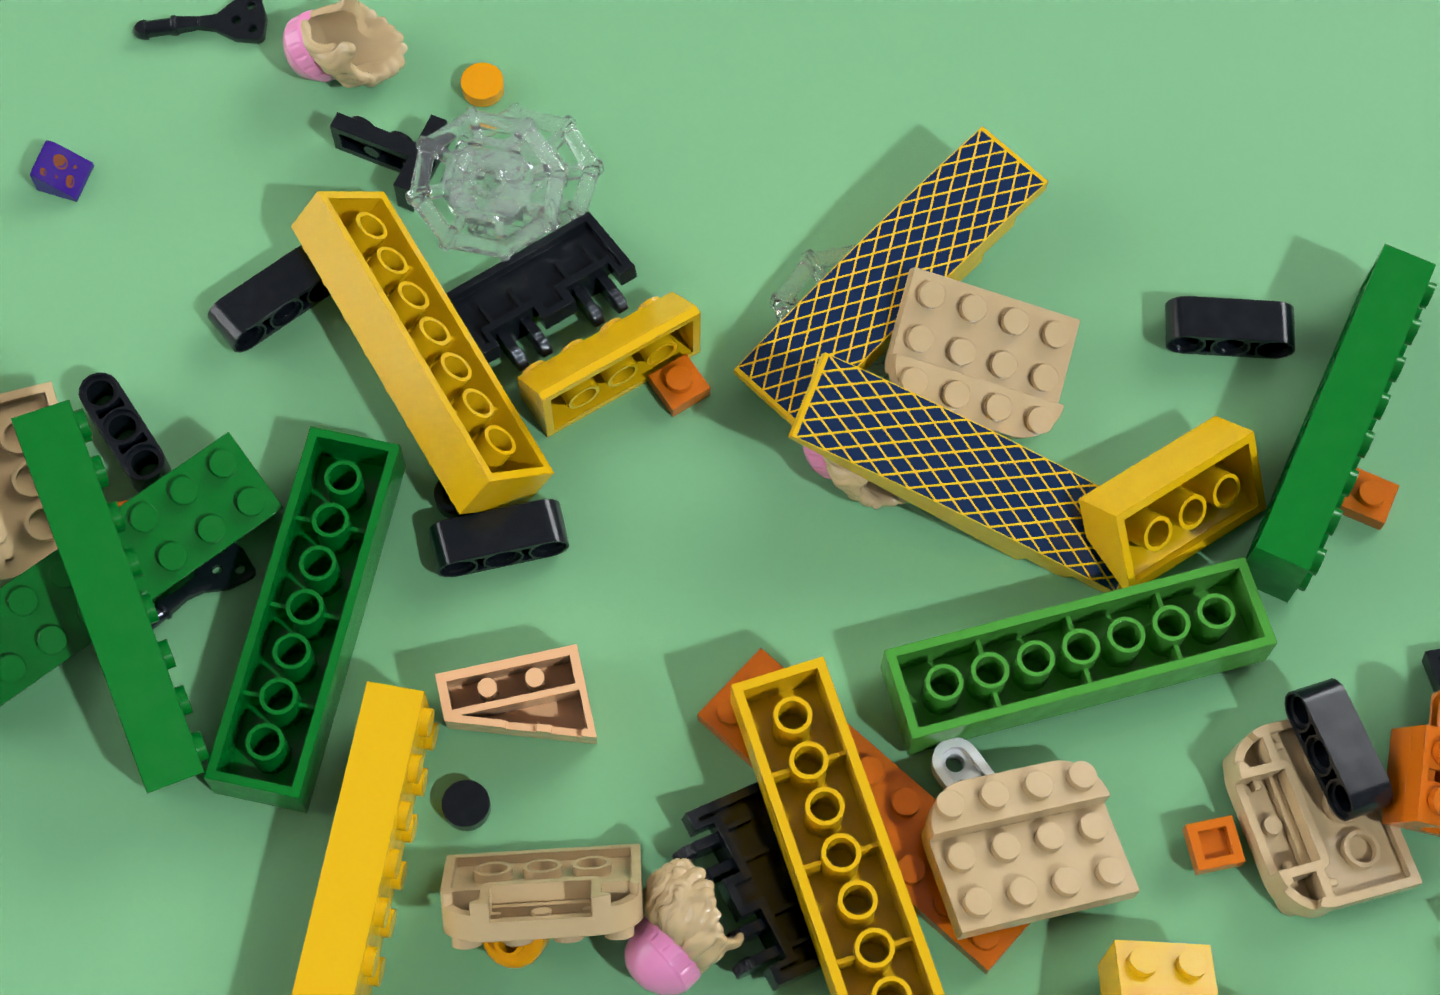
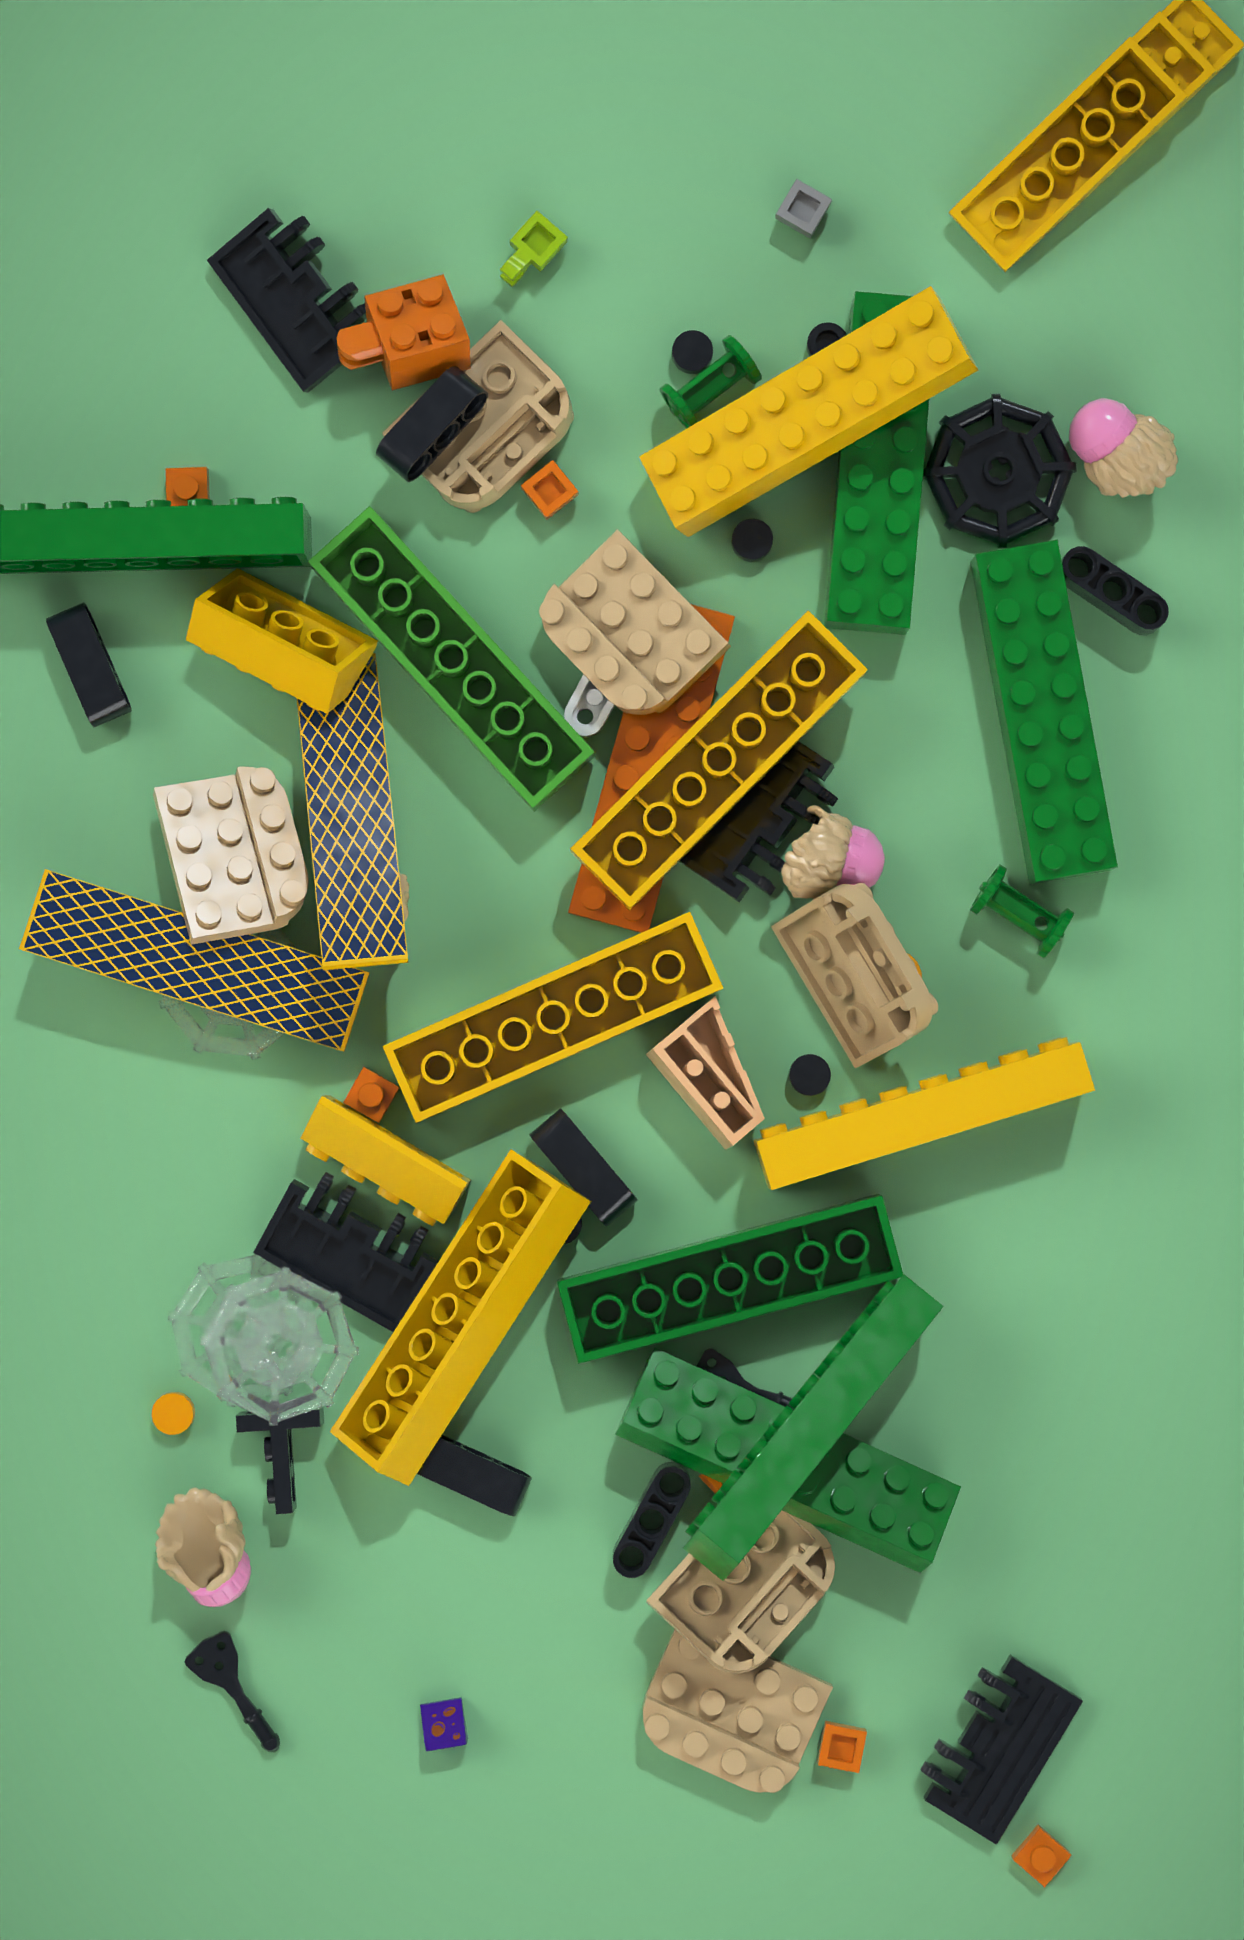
camera: 115 degrees left, 20 degrees up
(660, 581) = (553, 1017): none -> yellow brick

